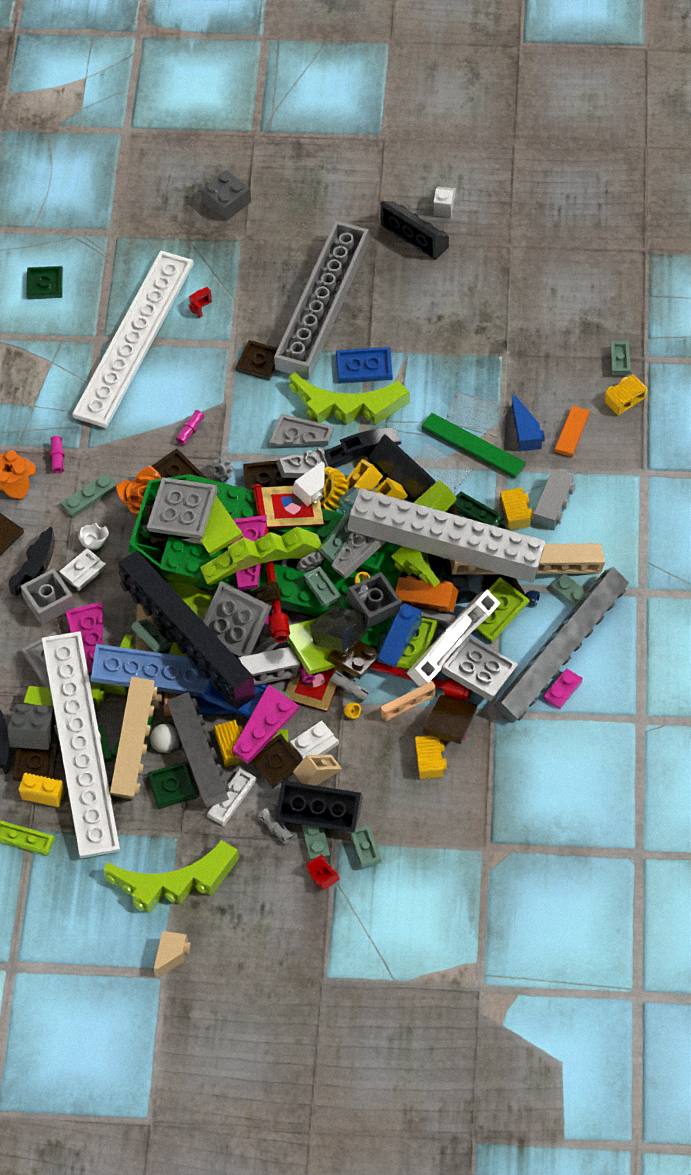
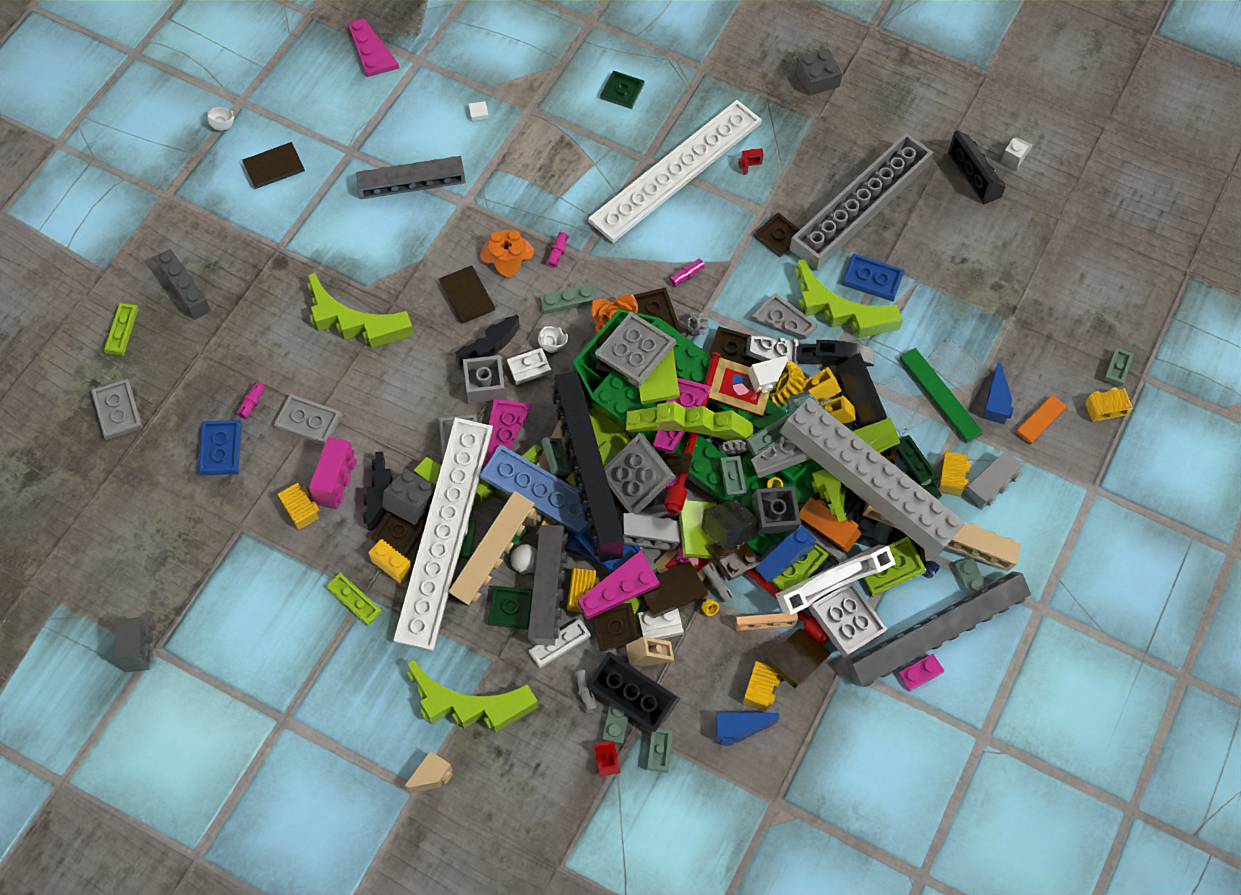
camera: 20 degrees right, 5 degrees up
(316, 705) = (676, 588): none -> dark brown tile
(424, 798) = (738, 726): none -> blue slope

